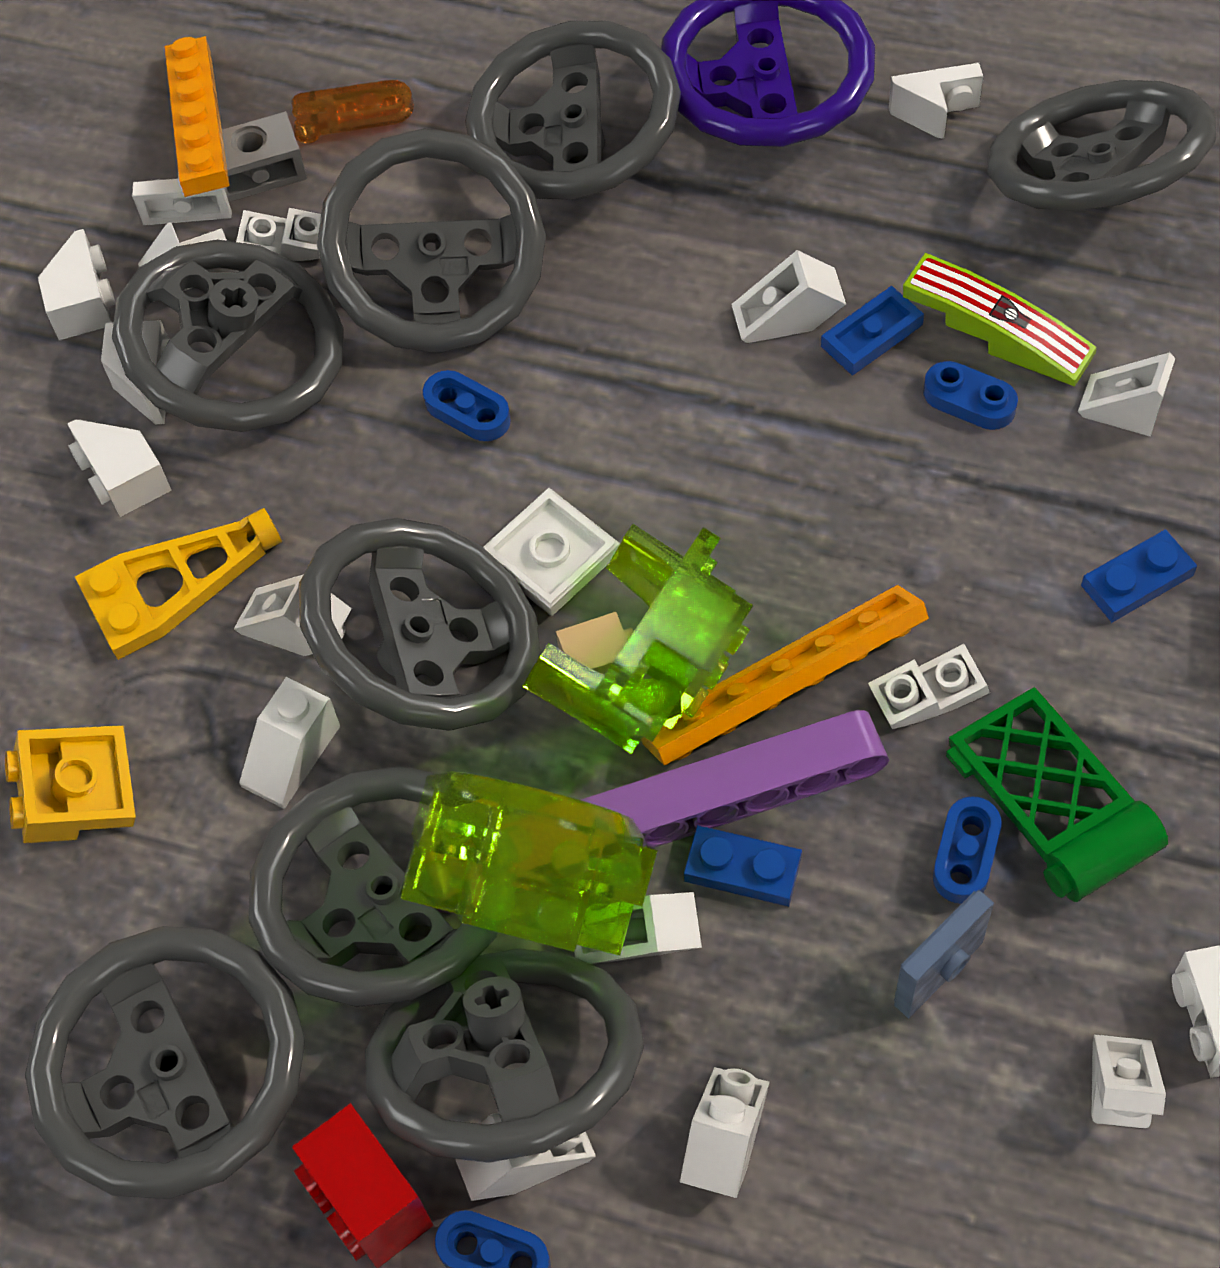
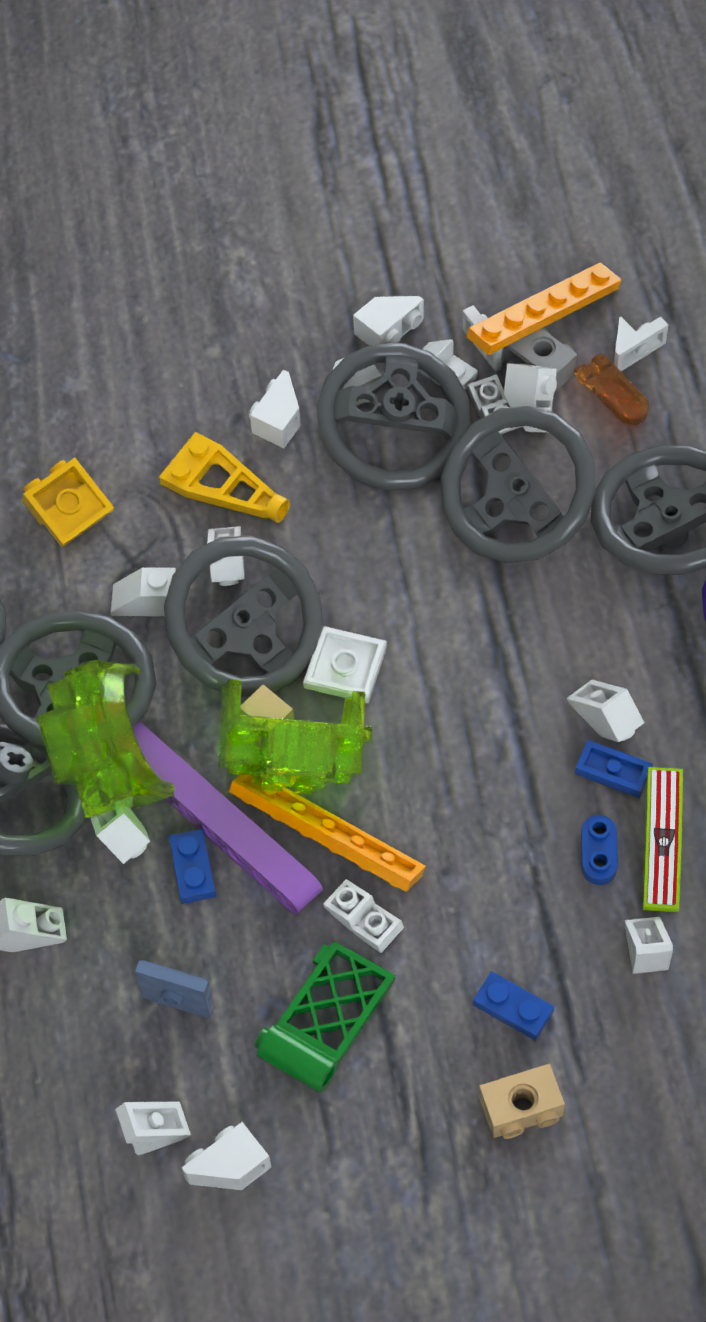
camera: 60 degrees right, 0 degrees up
(298, 175) = (530, 387): none -> white slope
(299, 63) = (635, 345): none -> white slope
(471, 405) = (421, 570): blue plate -> none
(967, 852) = (260, 978): blue plate -> none

